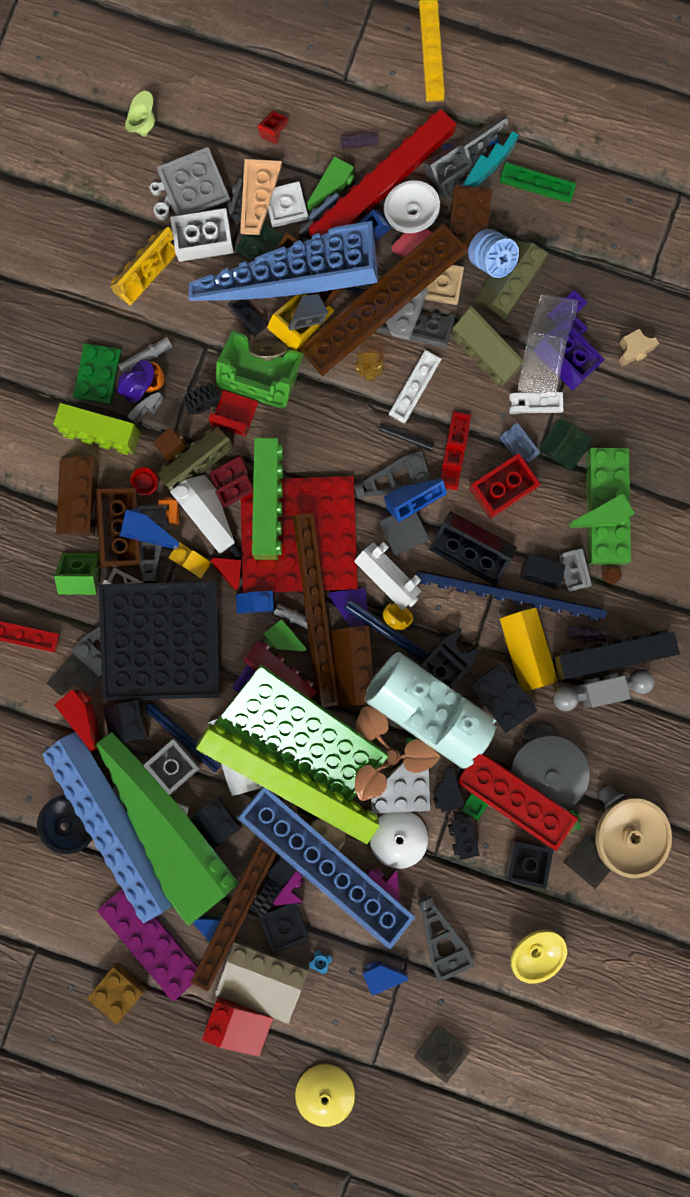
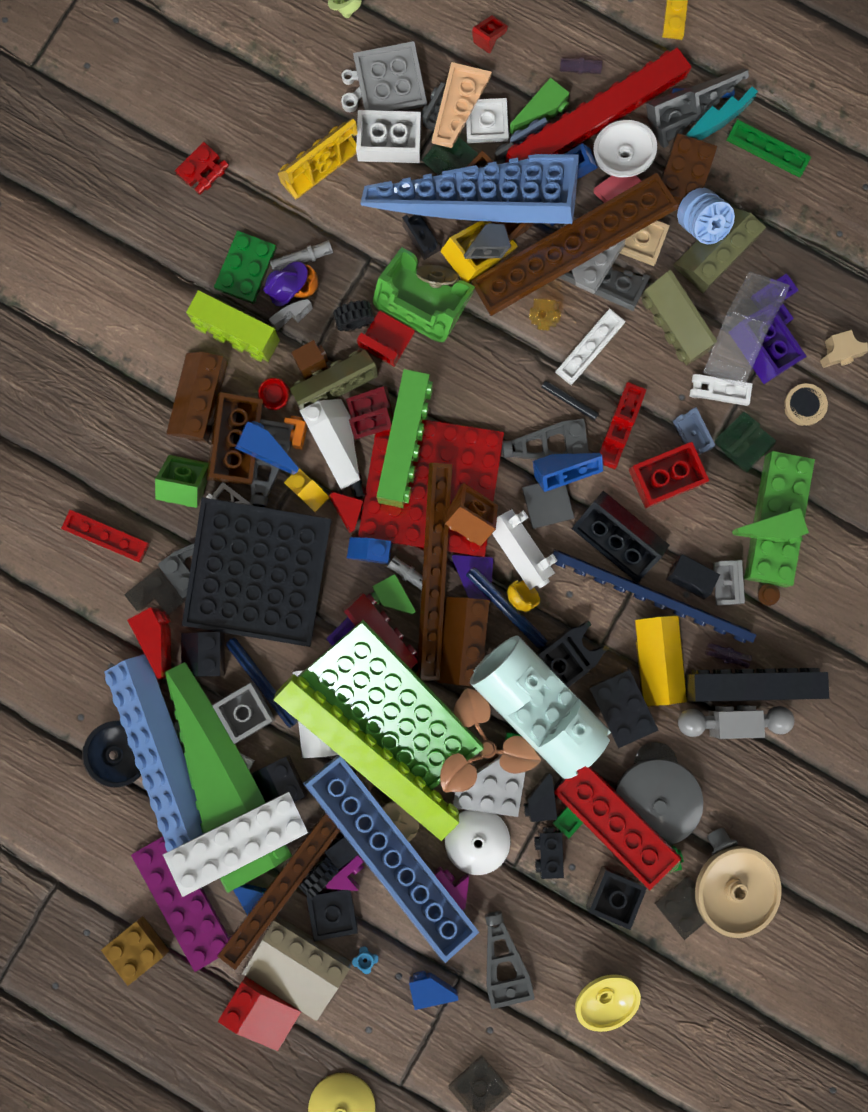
camera: 10 degrees right, 0 degrees up
(36, 292) = (198, 164): none -> red plate
(187, 881) = (235, 844): none -> white plate
(339, 554) = (472, 515): none -> dark orange slope
(612, 401) = (805, 404): none -> tile

